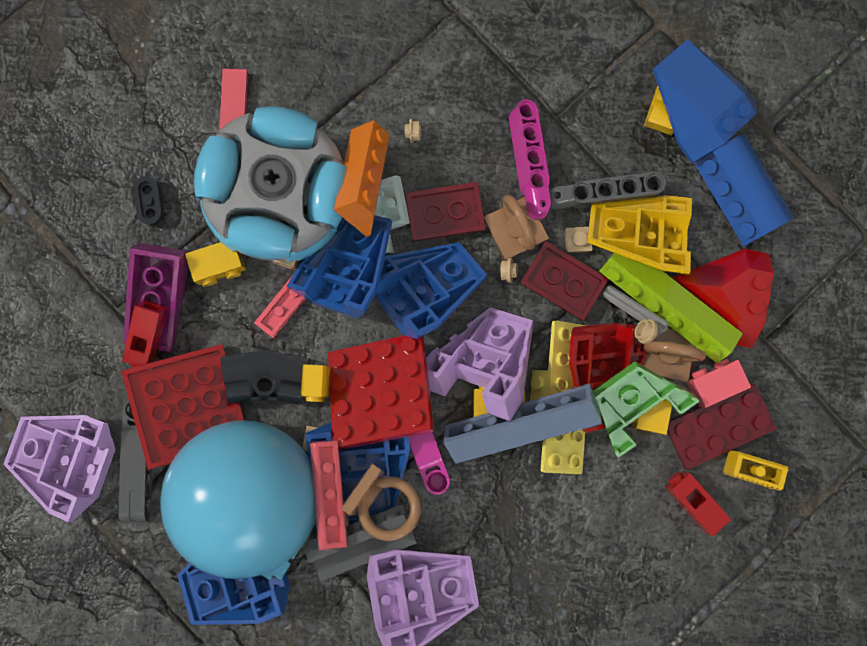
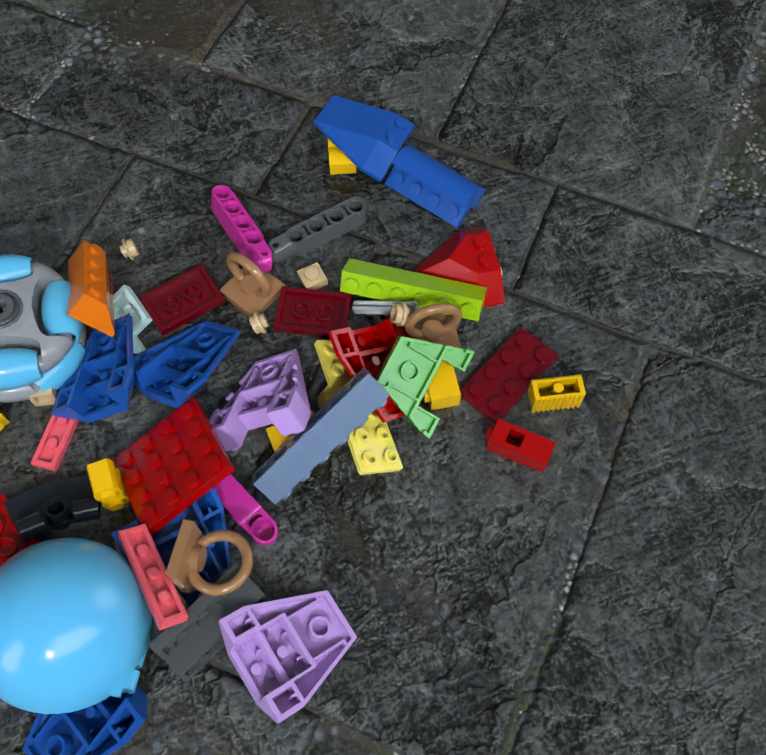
camera: 20 degrees left, 20 degrees down
(645, 230) = (367, 242): yellow wedge -> none
(718, 383) = (488, 337): coral brick -> none

